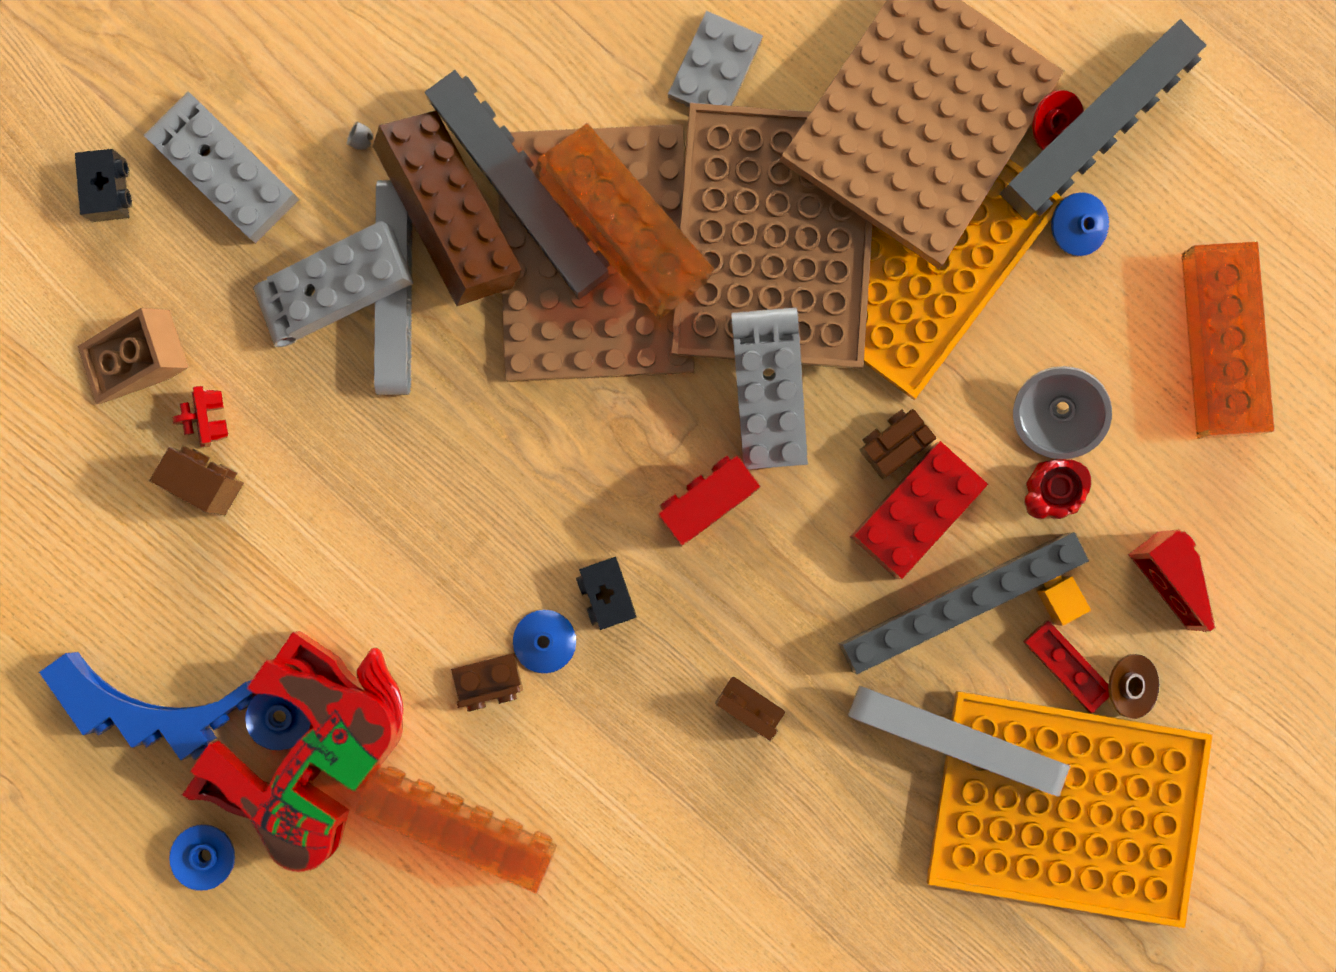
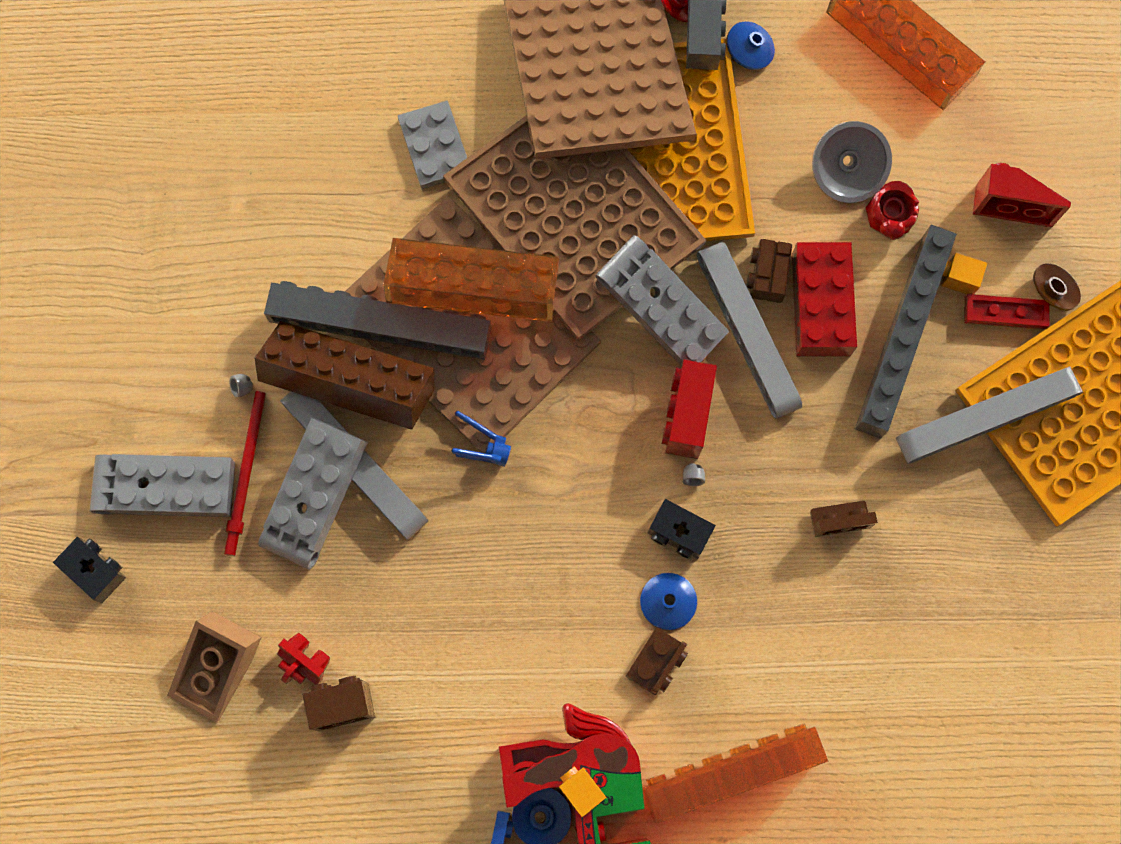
camera: 45 degrees left, 10 degrees down
(250, 254) = (235, 525): none -> red bar
(313, 732) = (581, 790): none -> light orange brick
(514, 388) = (495, 453): none -> blue plant
(663, 557) = (693, 475): none -> light grey hinge
(828, 477) = (749, 330): none -> light grey beam

